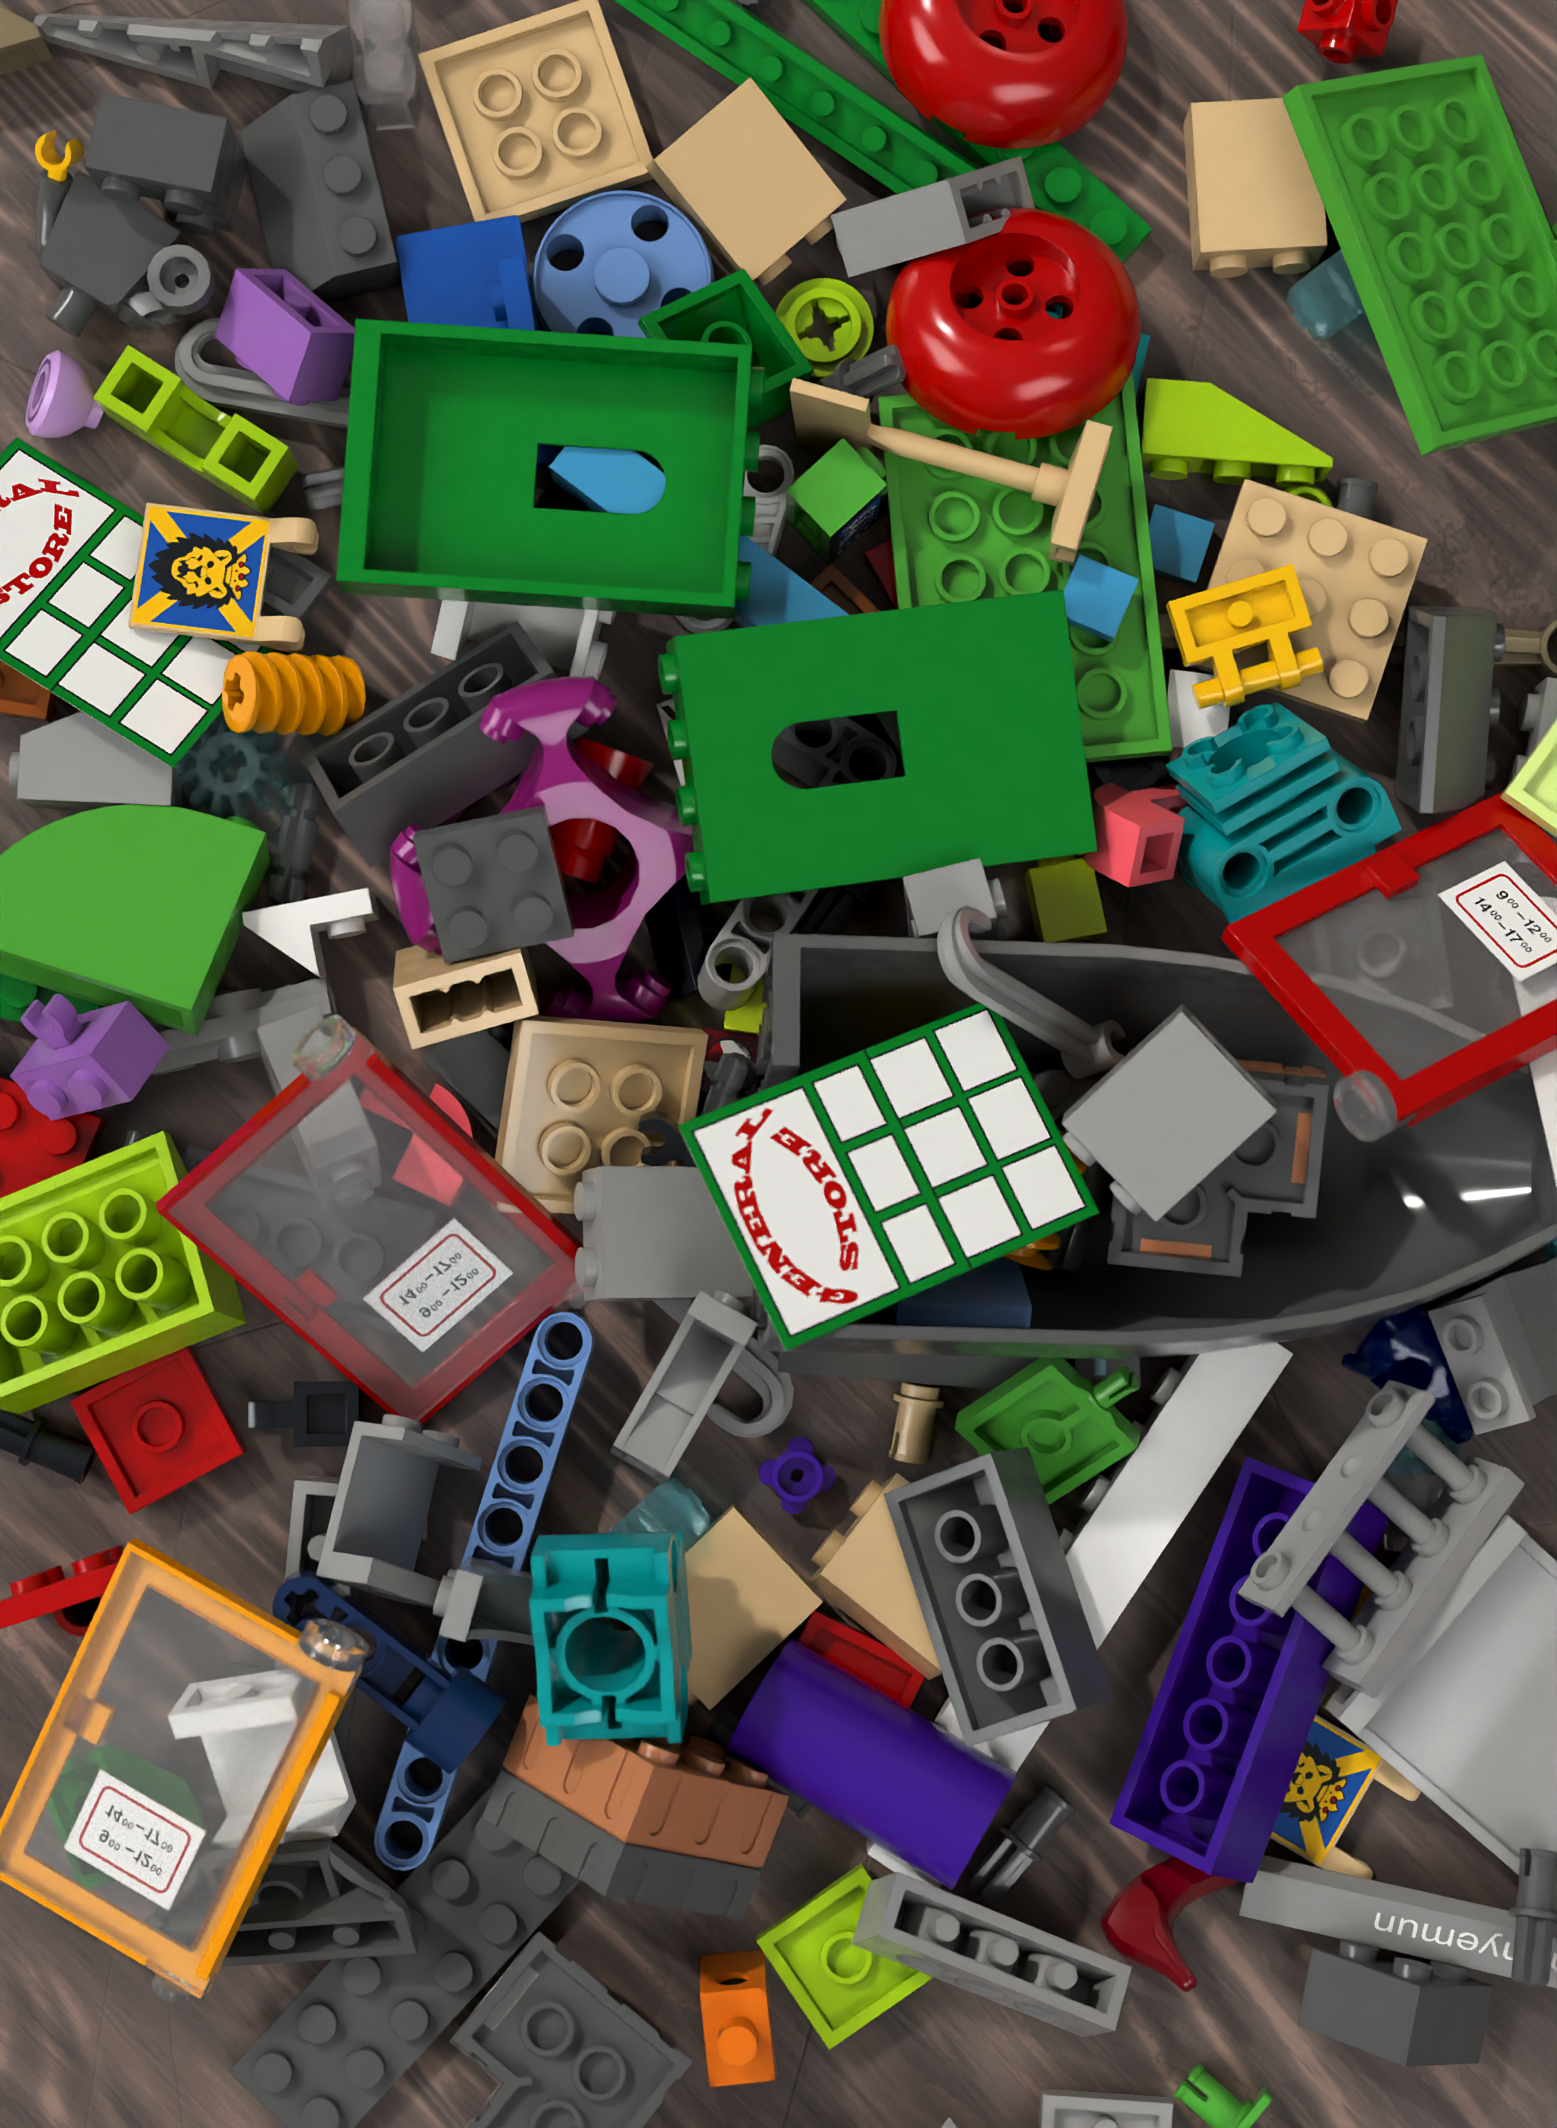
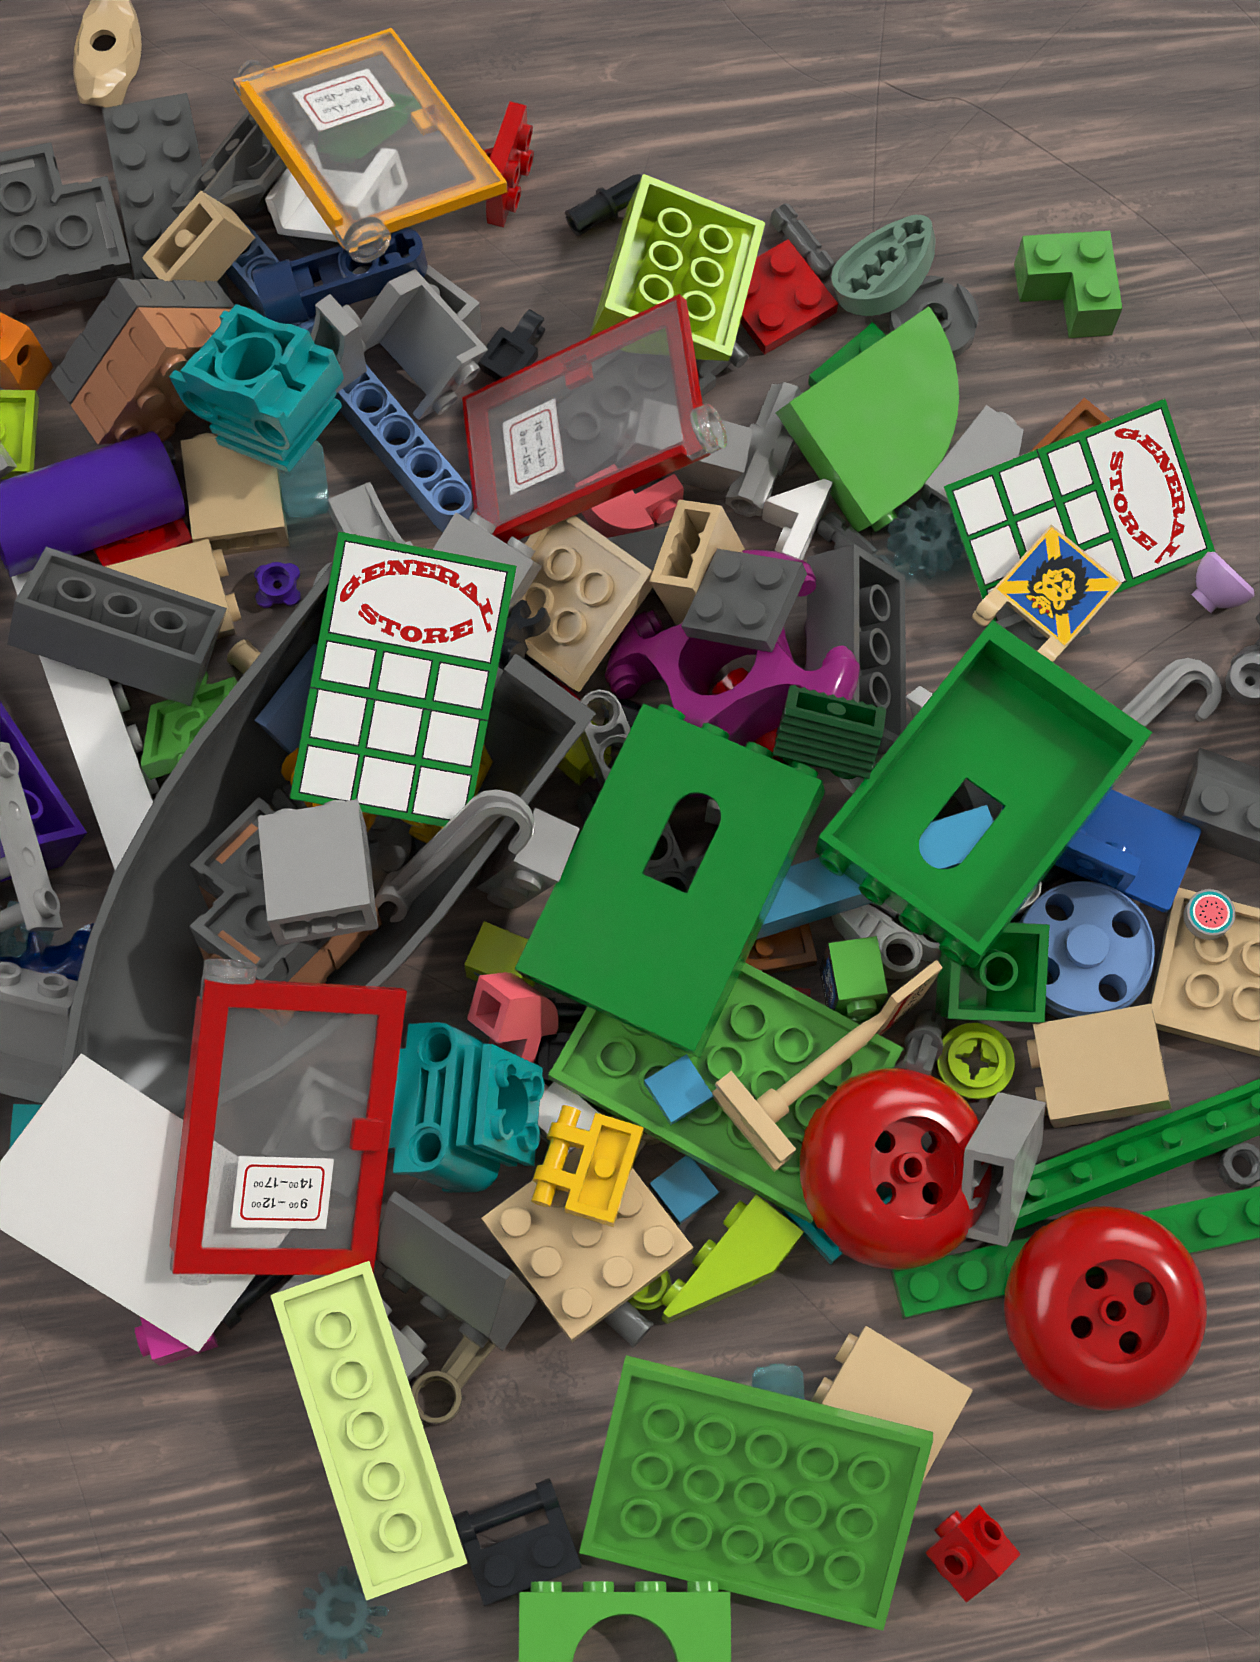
camera: 120 degrees right, 15 degrees down
(86, 1057) = (803, 344): medium lavender brick -> none
(158, 1427) = (564, 268): red plate -> none
(195, 433) = (1176, 632): lime arch -> none
(286, 335) = (1182, 726): medium lavender brick -> none
(292, 693) = (949, 590): light orange piece -> none
(456, 1868) = (199, 242): none -> tan brick
(490, 171) = (1209, 914): none -> tile
(610, 664) = (829, 733): none -> dark green brick

